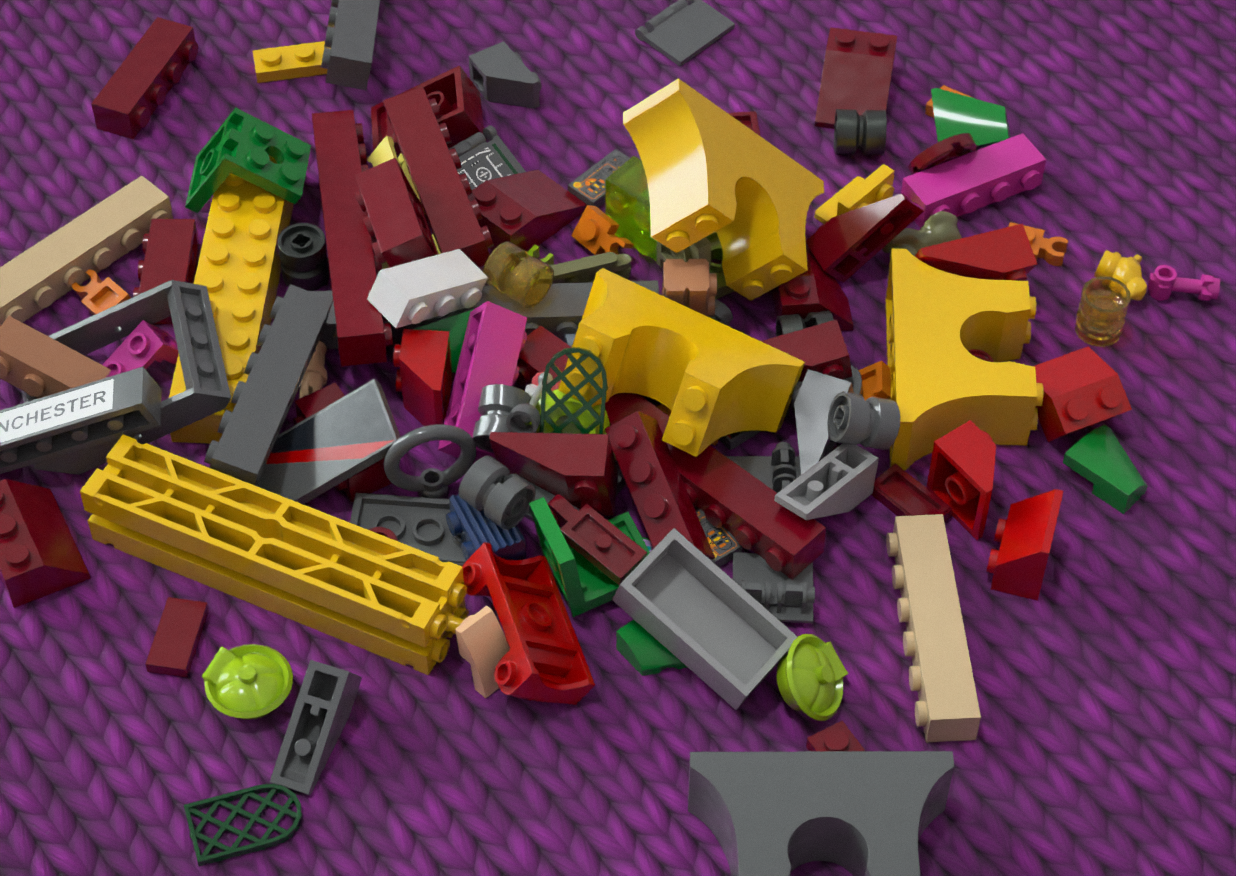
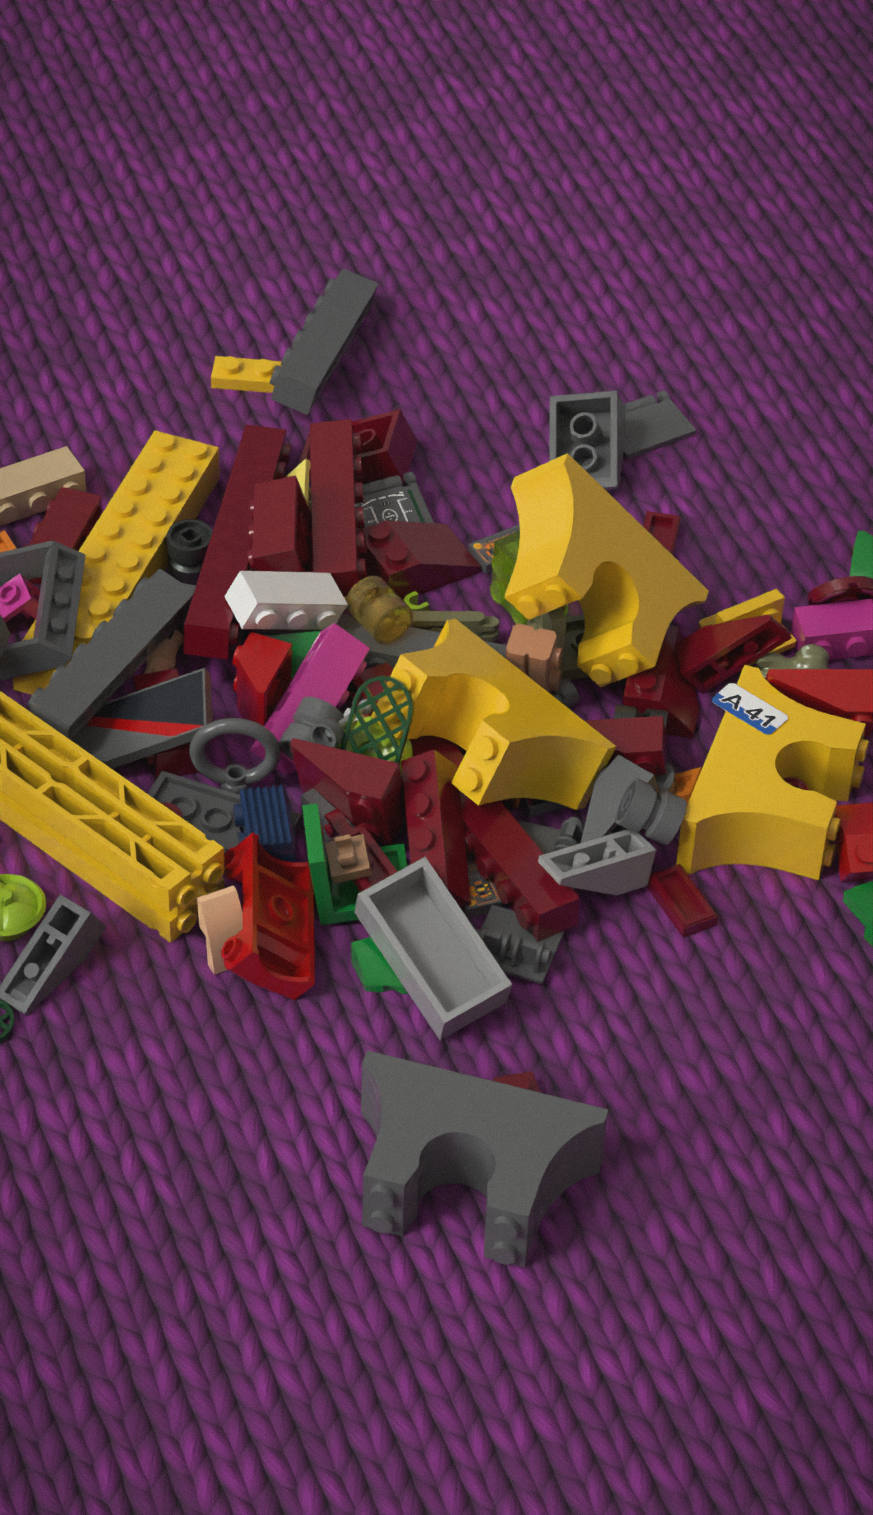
camera: 15 degrees right, 5 degrees down
(145, 78) = (104, 359): dark red brick -> none
(244, 149) = (162, 443): green bracket -> none
(497, 492) = (279, 791): dark grey wheel -> none
(504, 77) = (446, 431): dark grey slope -> none
(589, 544) = (348, 858): none -> medium nougat tile
(597, 232) = (479, 591): orange plate -> none
(639, 53) = (591, 432): none -> dark grey slope
(811, 677) = (517, 1025): lime piece -> none
(855, 73) = (792, 508): dark red slope -> none
(860, 132) = (773, 557): pearl dark grey wheel -> none
(915, 292) = (749, 708): none -> sticker
(934, 629) = (652, 1013): tan brick -> none
(964, 475) = (736, 885): red slope -> none
(1024, 545) = (770, 963): red slope -> none

